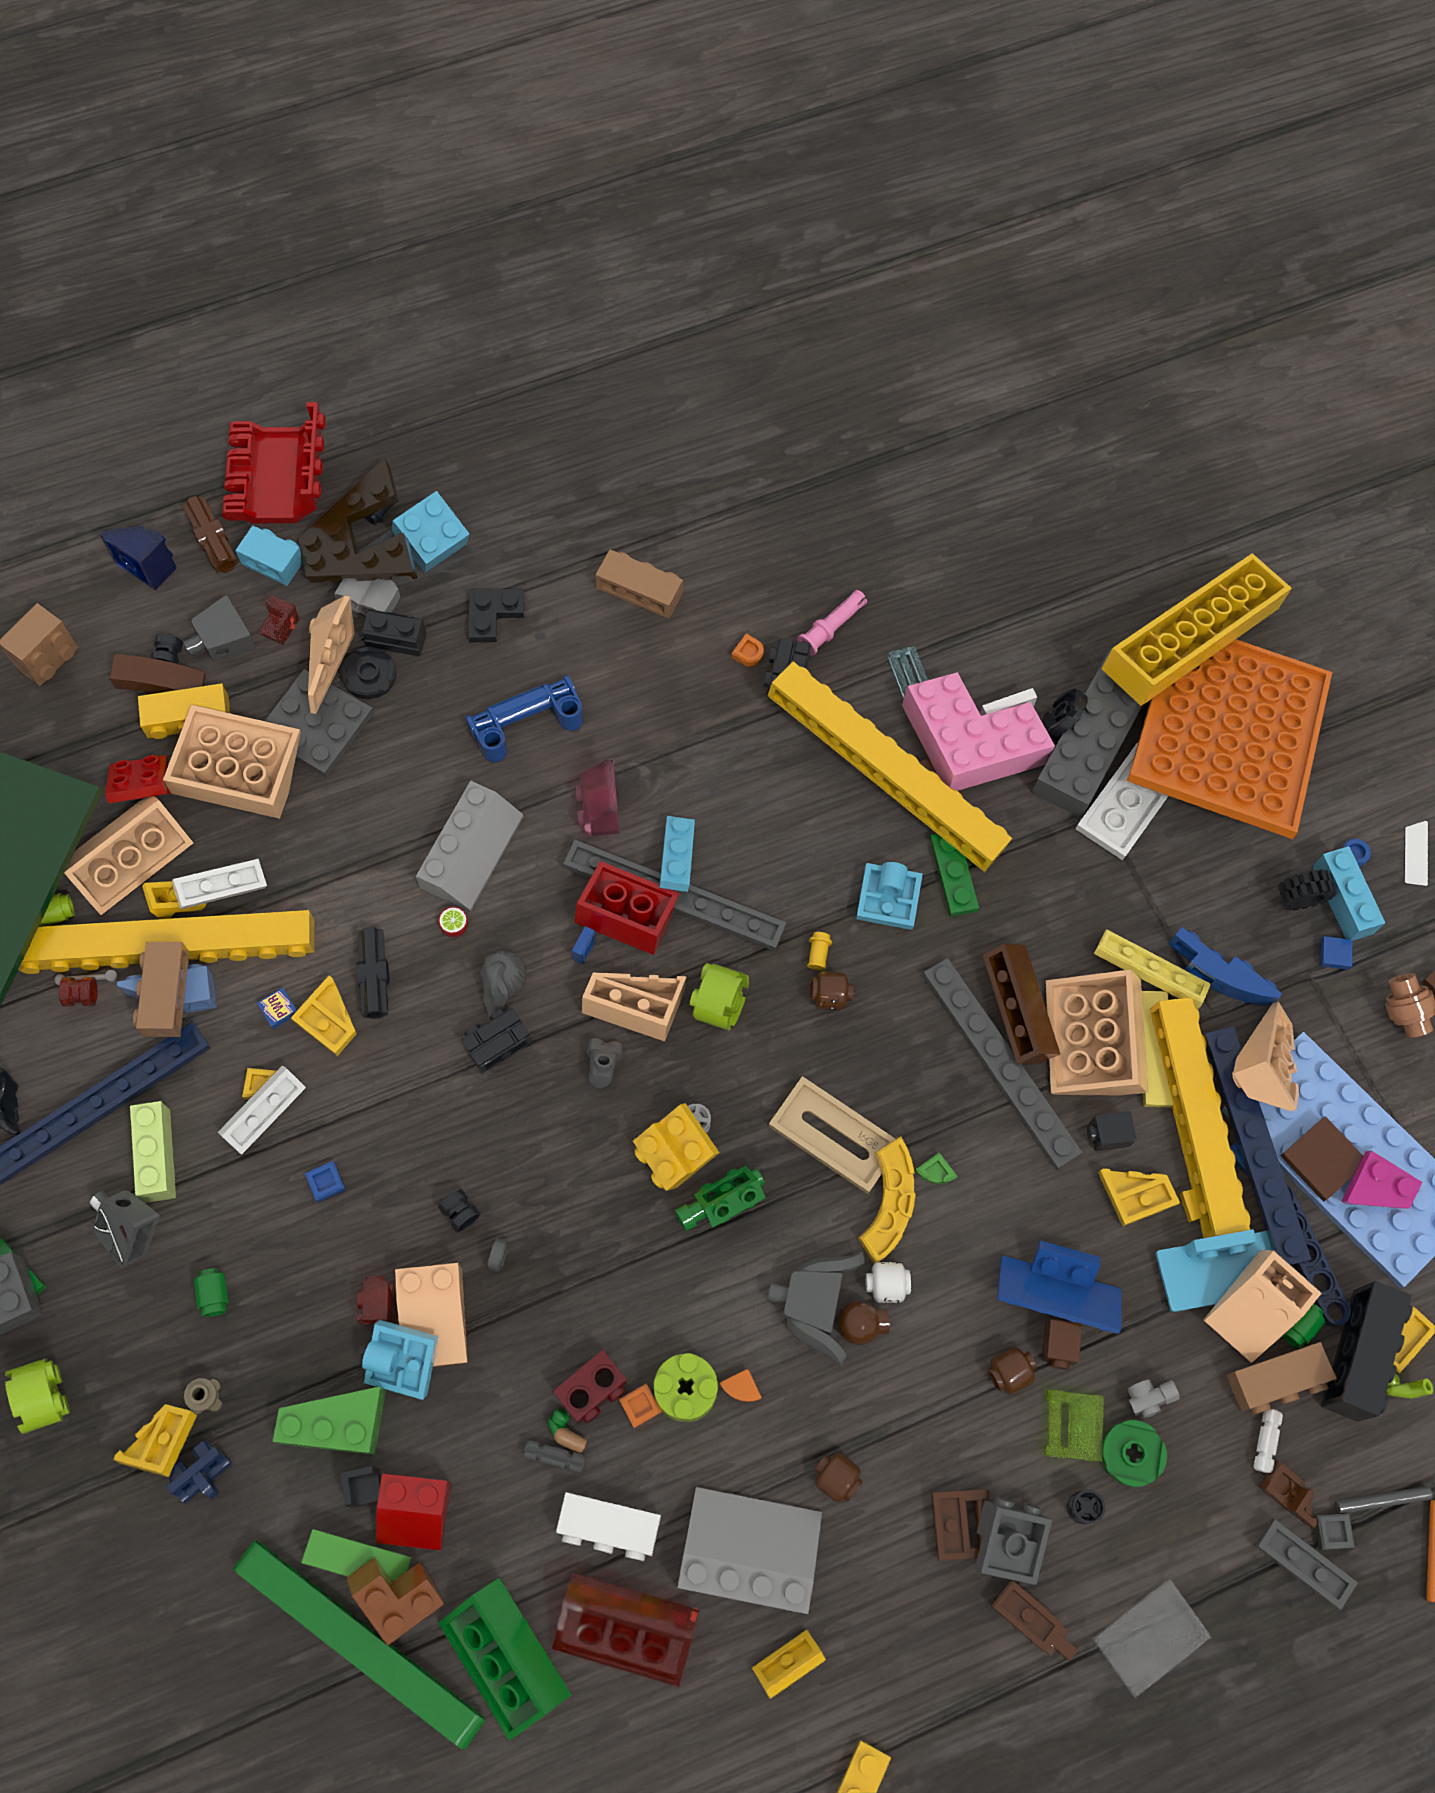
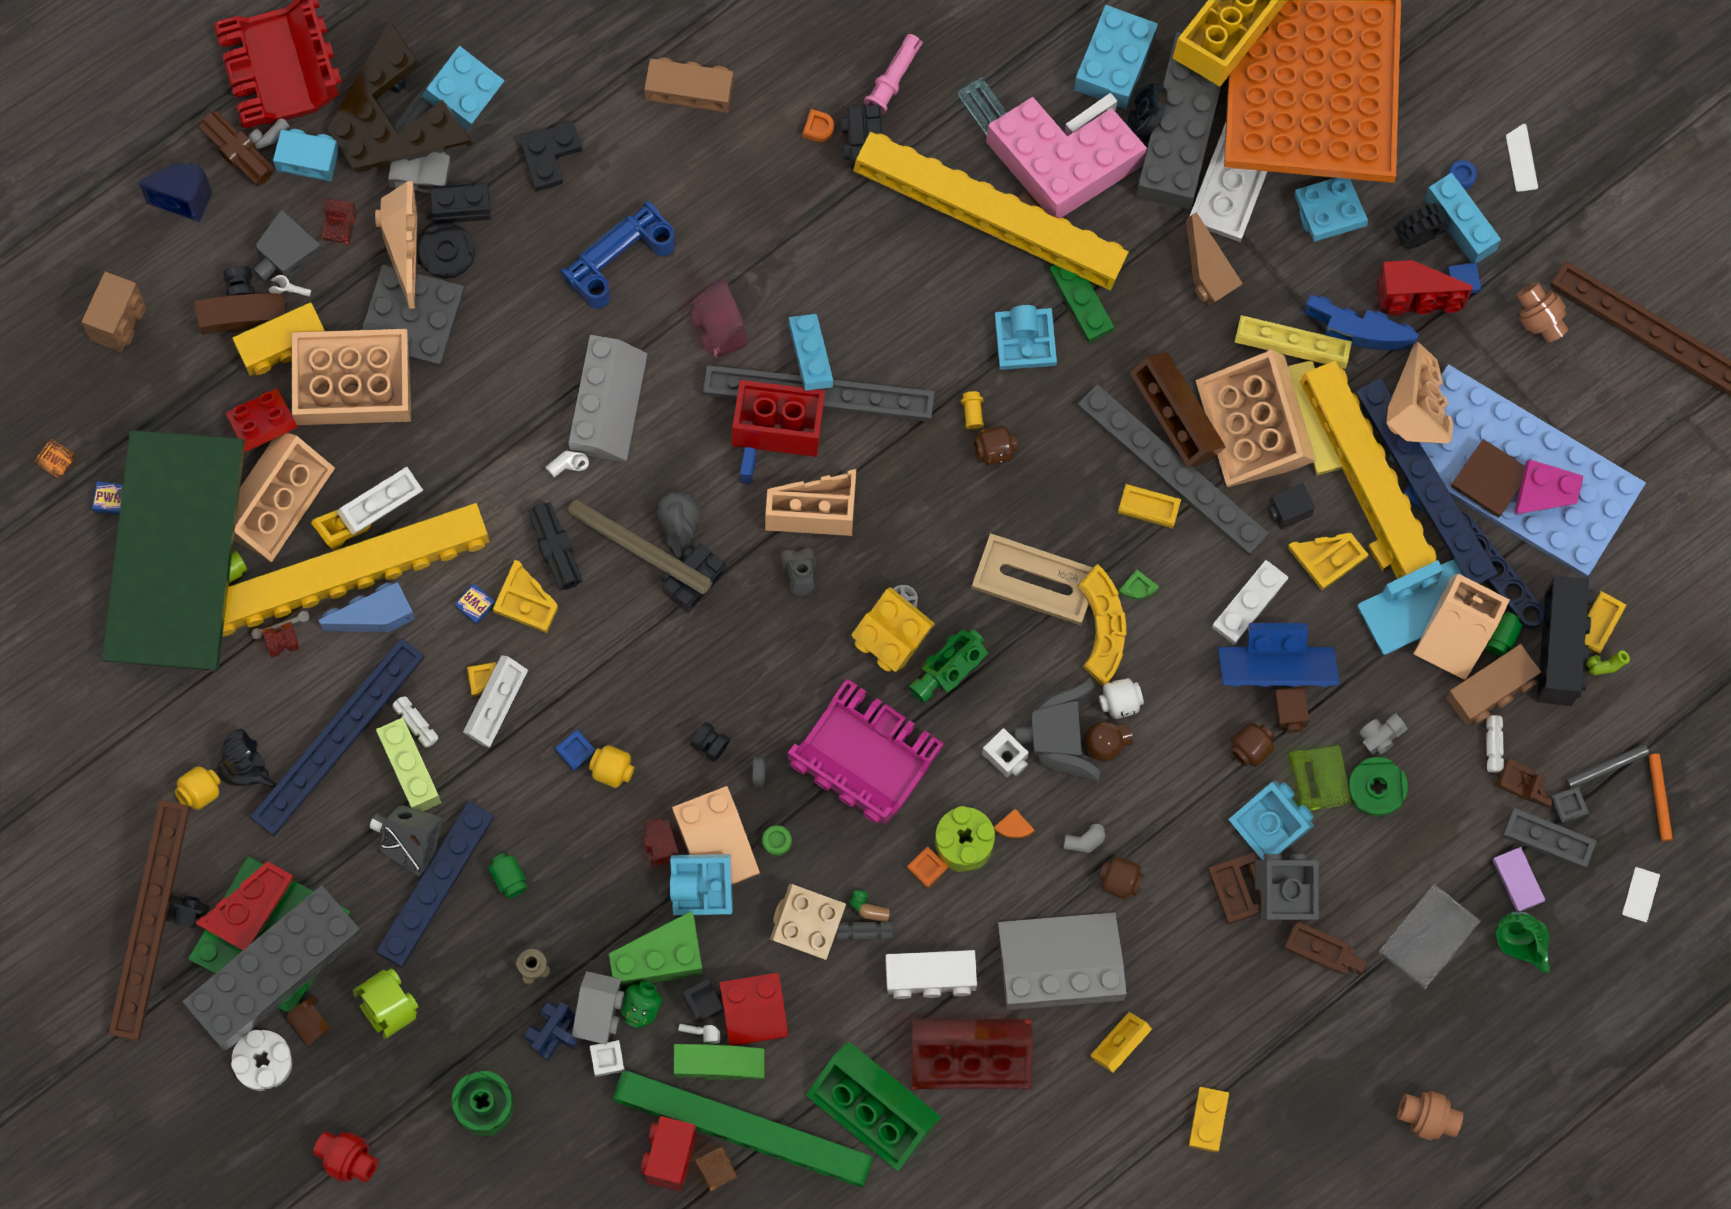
camera: 15 degrees left, 5 degrees up
(77, 1532) = (488, 1119): none -> green brick
(137, 1281) = (435, 884): none -> dark blue plate
(159, 1441) = (508, 1014): yellow wing -> none
(161, 989) = (367, 614): medium nougat brick -> none
(178, 1108) = (415, 721): none -> white axle
(211, 667) = (286, 286): none -> white hand
(235, 533) = (270, 137): none -> light grey arm
(243, 1520) = (607, 1058): none -> white plate
(247, 1464) = (597, 1007): none -> light grey brick
(267, 1653) = (670, 1153): none -> red brick
(296, 1472) = (640, 1004): none -> green head
(314, 1682) = (716, 1168): none -> clear orange panel
(352, 1208) = (611, 766): none -> yellow head
(360, 1524) = (710, 1033): none -> white hand
(396, 1604) = (765, 1086): dark orange brick -> none
(413, 894) = (568, 460): none -> white arm
(452, 996) = (640, 546): none -> dark tan axle
(453, 921) = (614, 476): tile -> none
(495, 1332) = (776, 840): none -> bright green tile
(496, 1431) = (807, 921): none -> tan plate
(585, 1381) = (872, 859): dark red brick -> none
(607, 1271) = (863, 756): none -> dark pink hinge
(719, 996) = (893, 479): lime brick -> none
(754, 1296) = (1003, 744): none -> white brick
(813, 1426) = (1086, 842): none -> light grey arm
(968, 1092) = (1149, 506): none -> yellow tile
(1013, 1460) = (1272, 820): none -> medium azure plate
(1046, 657) = (1116, 56): none -> medium azure brick
(1046, 1218) = (1250, 602): none -> white plate
(1088, 876) = (1210, 267): none -> medium nougat slope
(1091, 1504) = (1349, 838): black wheel -> none
(1219, 850) = (1330, 208): none -> medium azure plate
(1256, 1675) = (1524, 939): none -> green hair
(1262, 1601) = (1519, 880): none -> lavender tile
(1293, 949) = (1415, 287): none -> red slope
(1392, 1655) = (1641, 894): none -> white sticker

